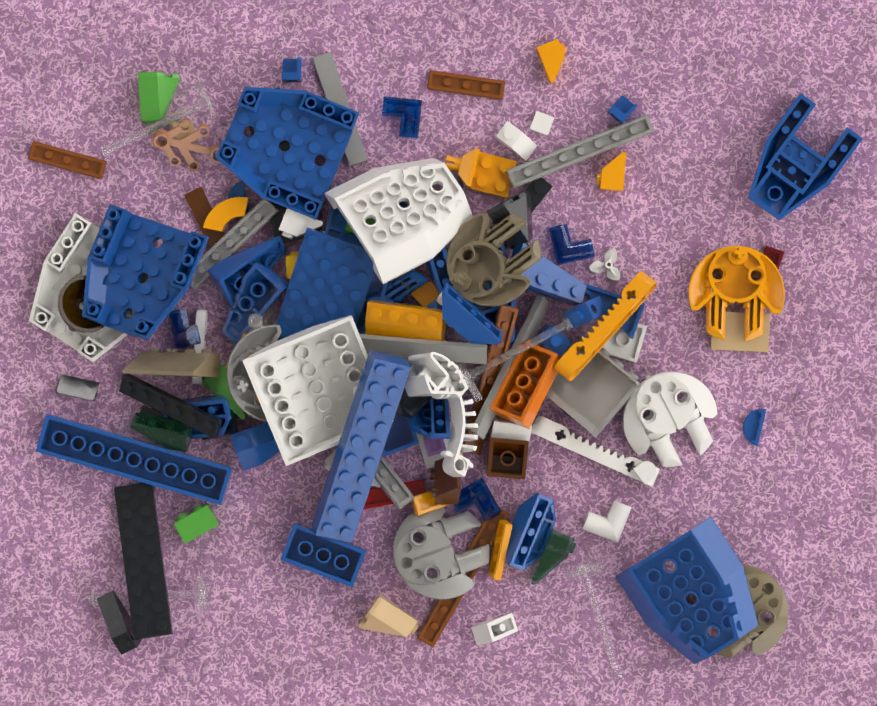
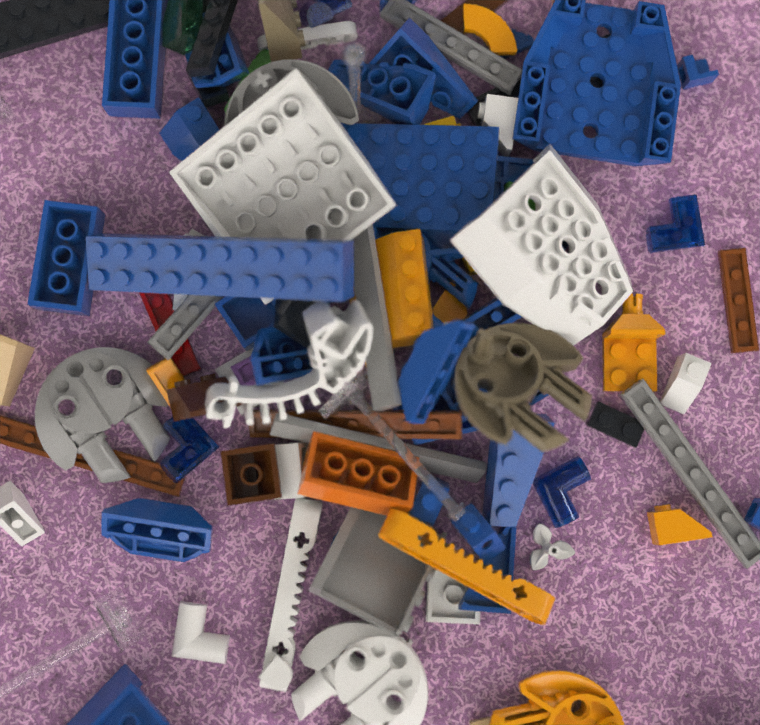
camera: 70 degrees right, 5 degrees down
(196, 523) = (73, 85): bright green brick -> none
(334, 92) = (687, 130): light grey tile -> none
(500, 549) = (124, 494): light orange tile -> none
(520, 206) = (602, 408): black slope -> none
(542, 123) = (715, 413): white tile -> none
(555, 551) = (135, 571): clear green slope -> none

